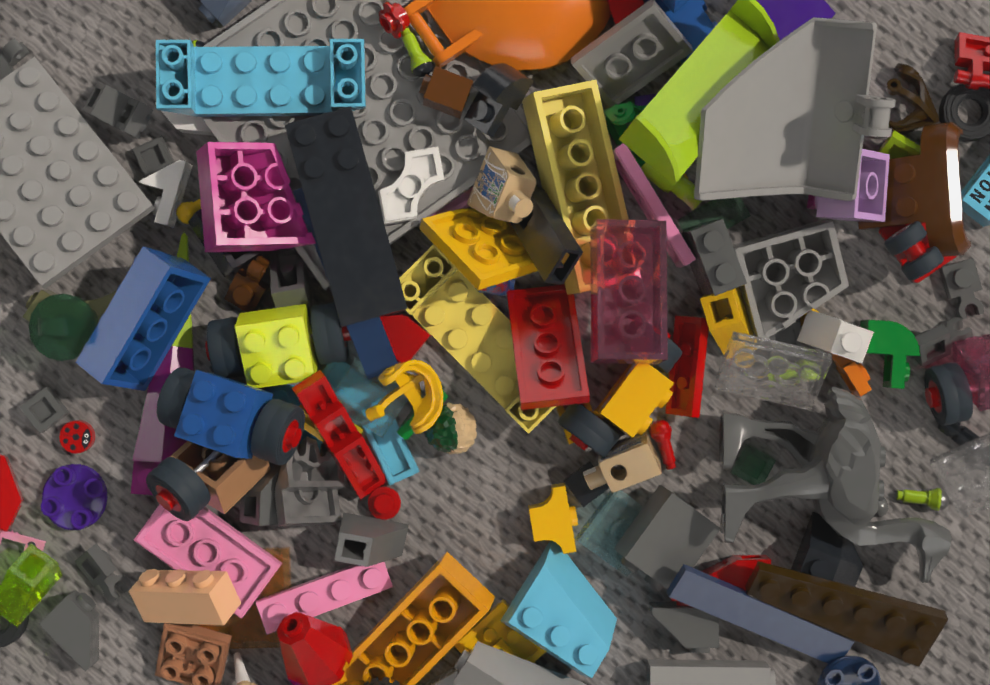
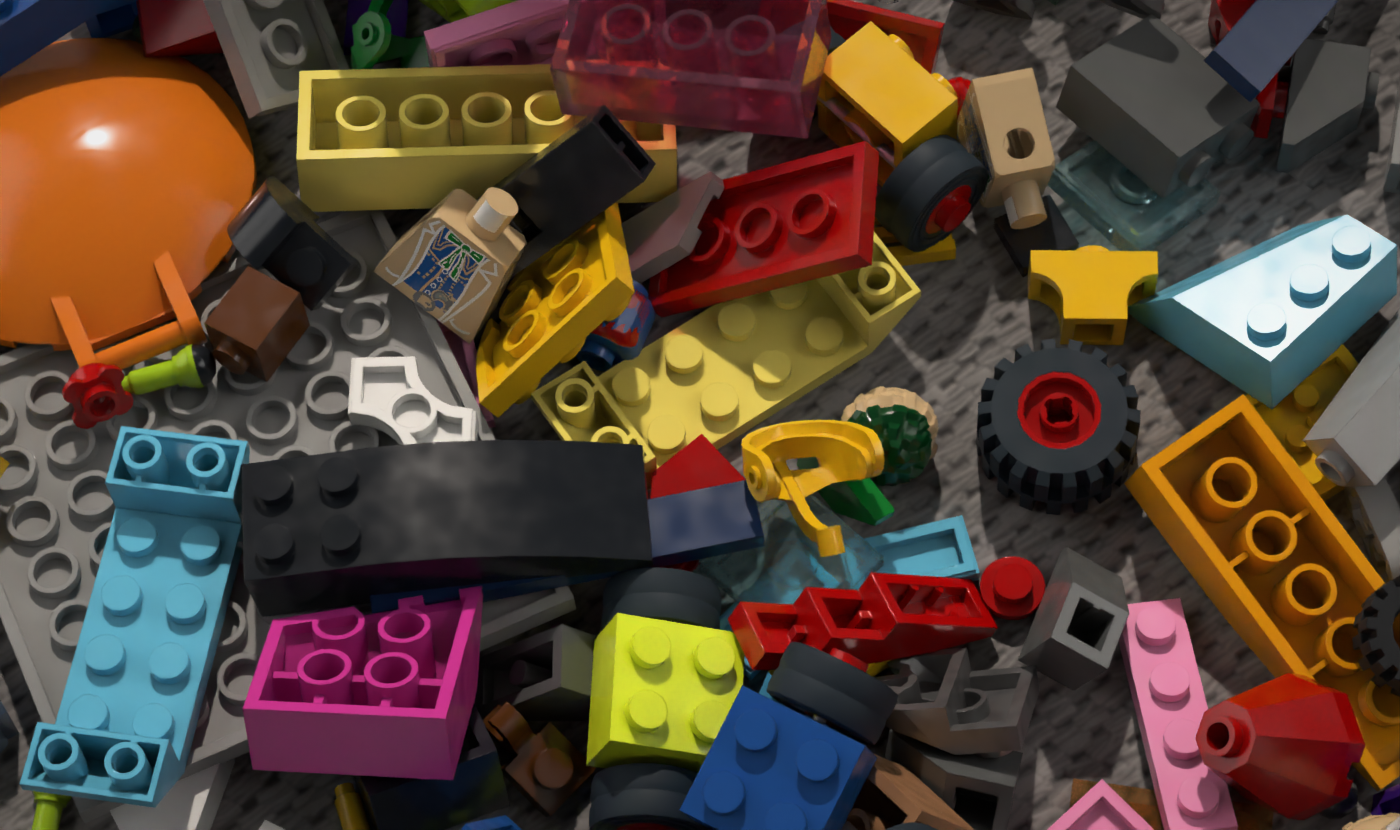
camera: 75 degrees left, 25 degrees down
(471, 514) = (1057, 426): none -> black wheel
(546, 296) = (669, 227): none -> light grey tile

